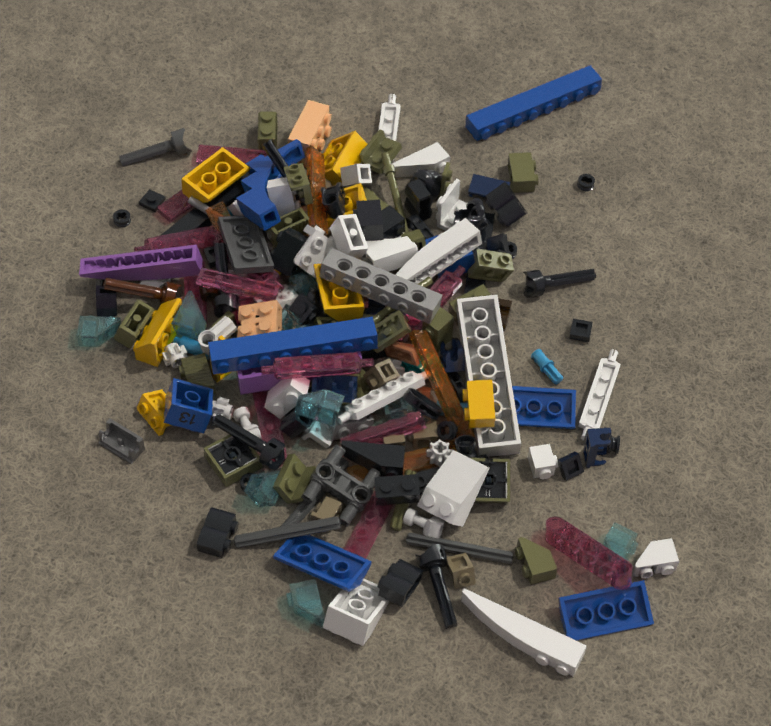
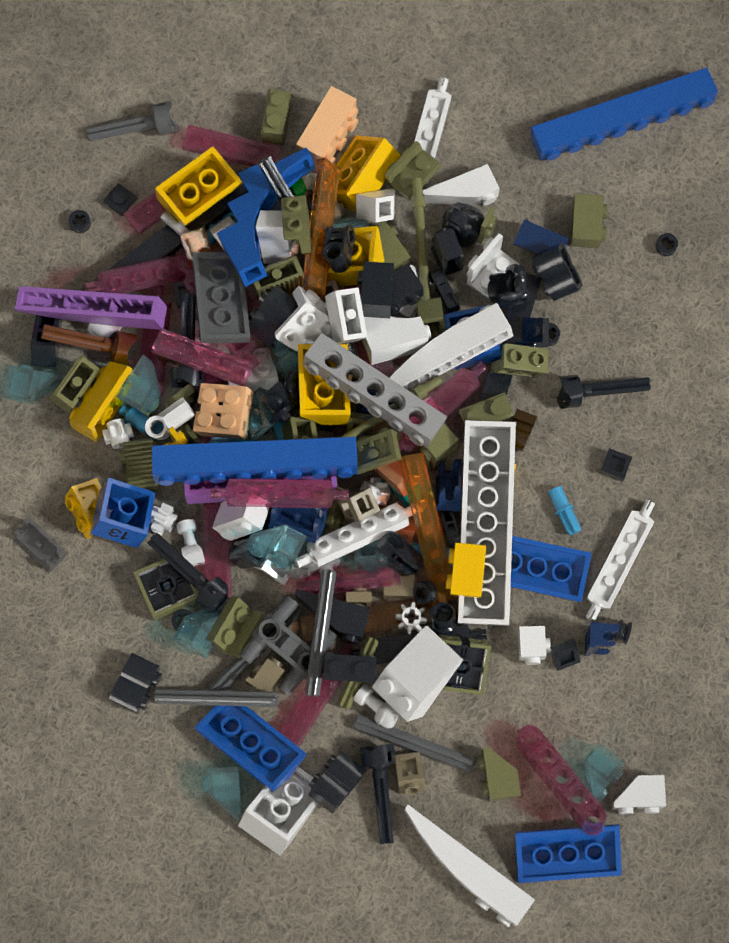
camera: 10 degrees right, 20 degrees up
(367, 450) = (320, 632): none -> dark grey axle

